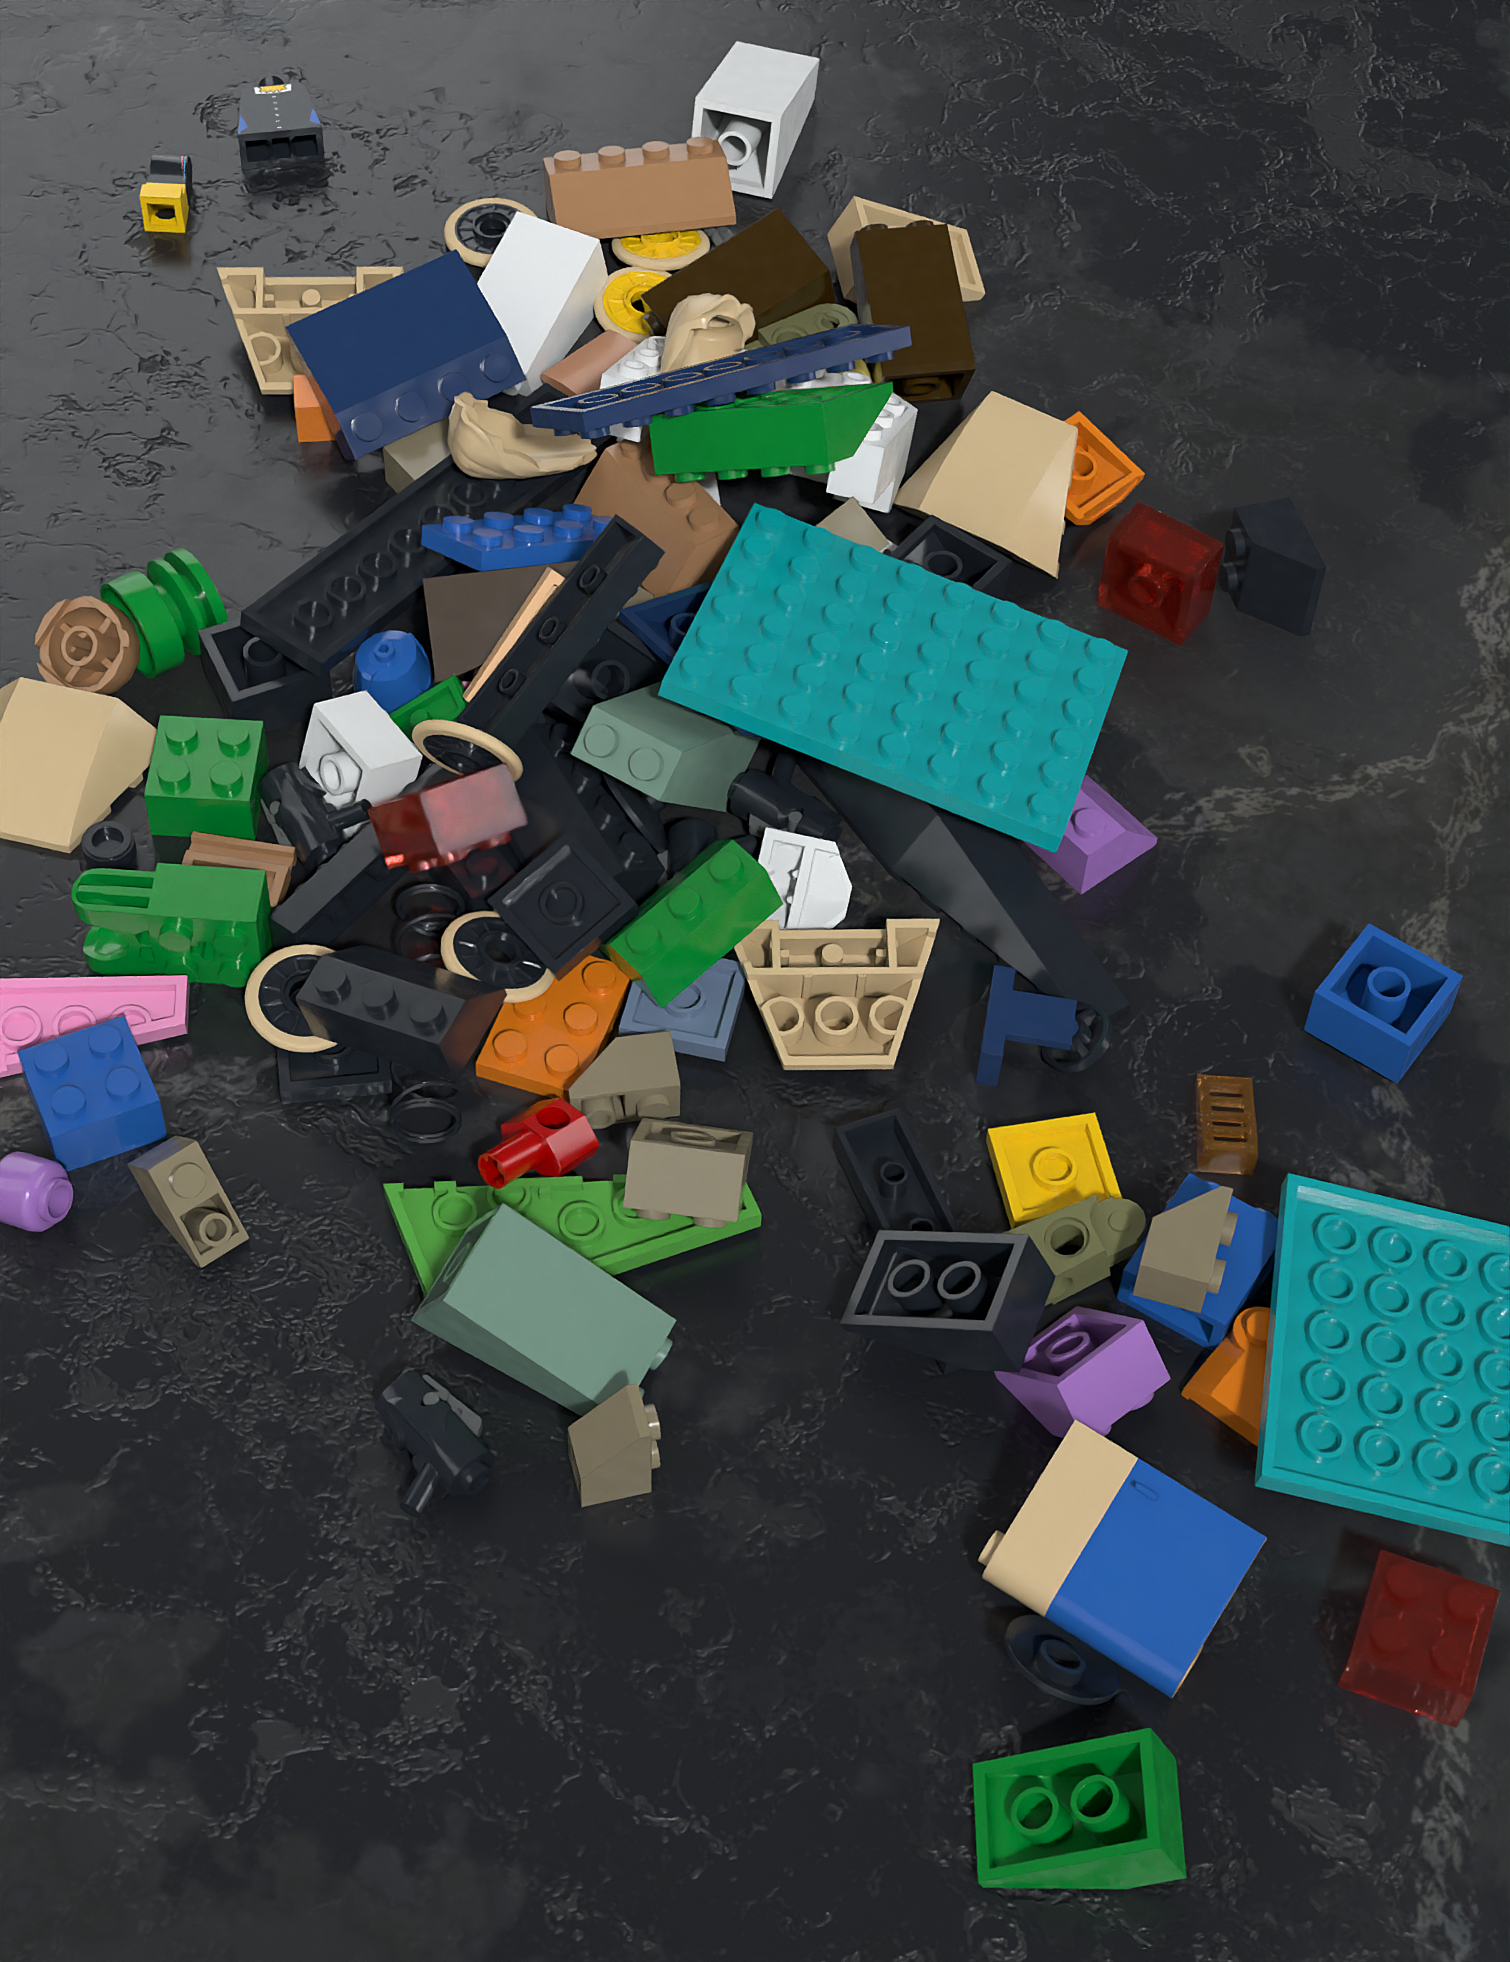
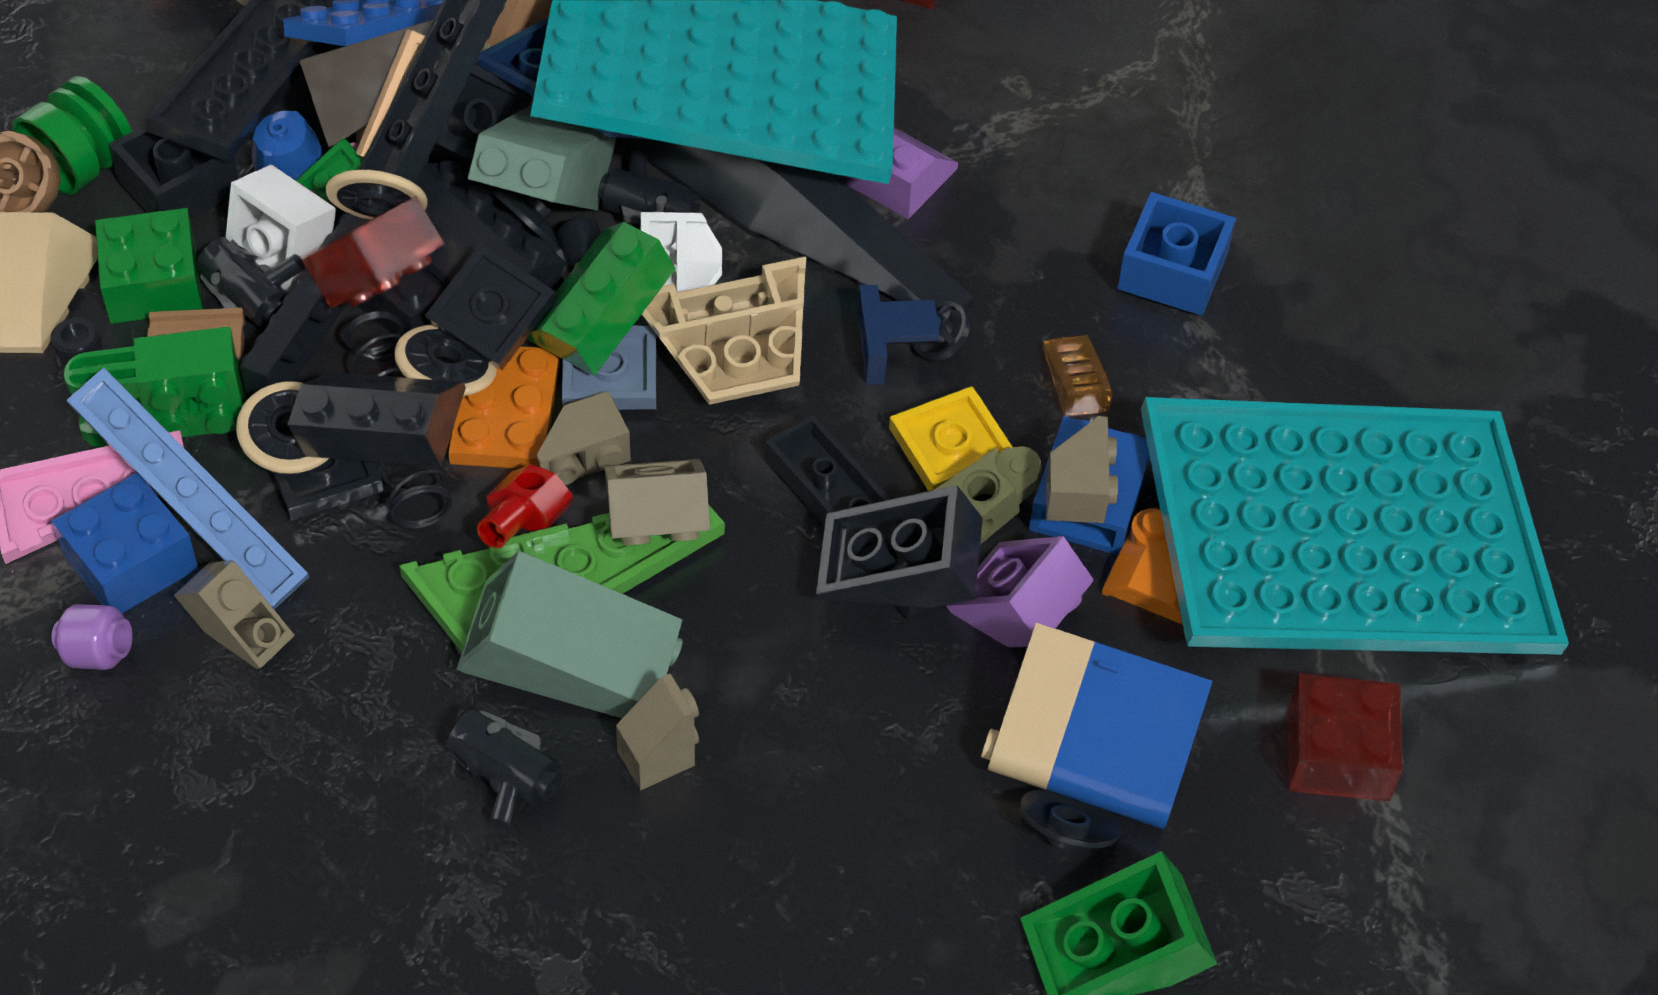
camera: 15 degrees left, 0 degrees up
(173, 1047) = (187, 487): none -> medium blue plate

